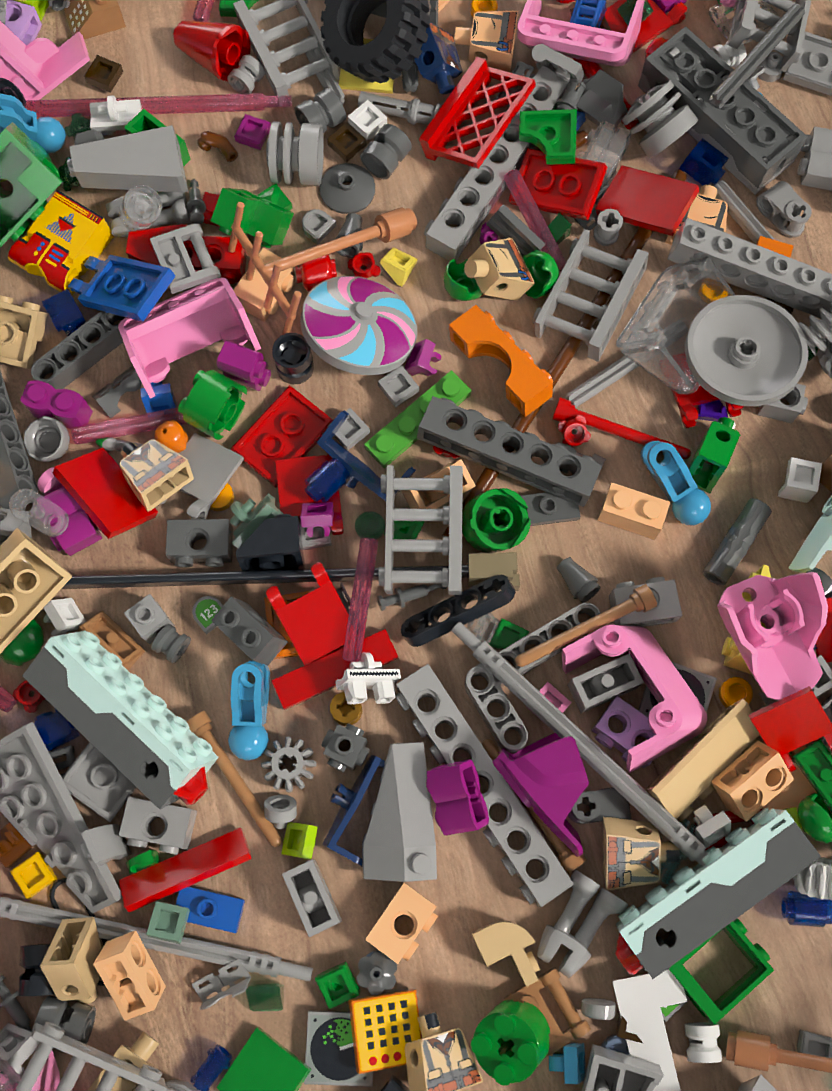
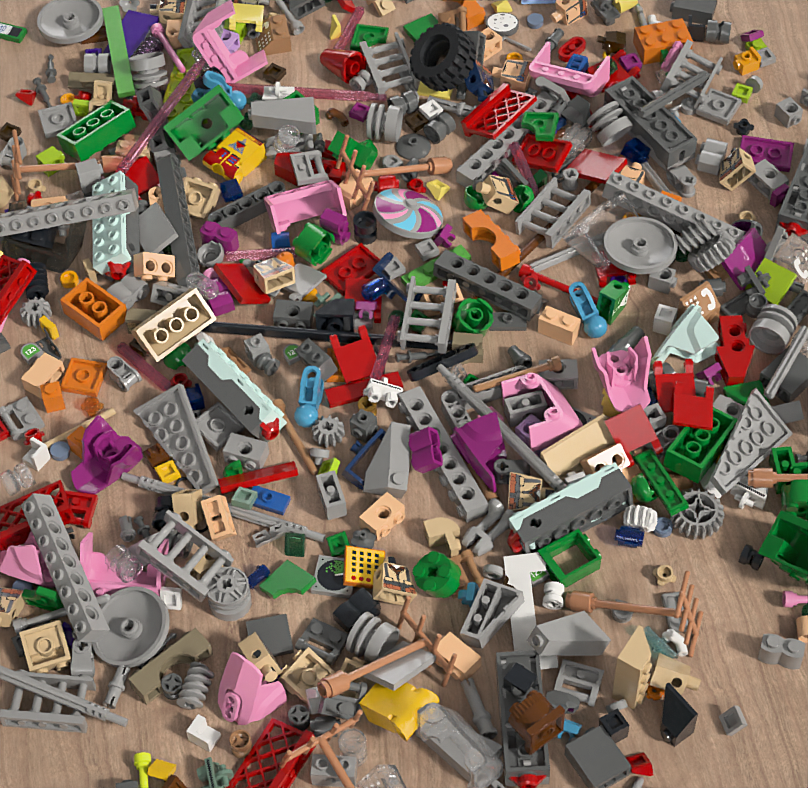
camera: 10 degrees right, 20 degrees down
(104, 844) = (213, 452): light grey slope -> none
(111, 398) = (251, 239): dark grey piece -> none
(123, 286) = (269, 178): blue tile -> none

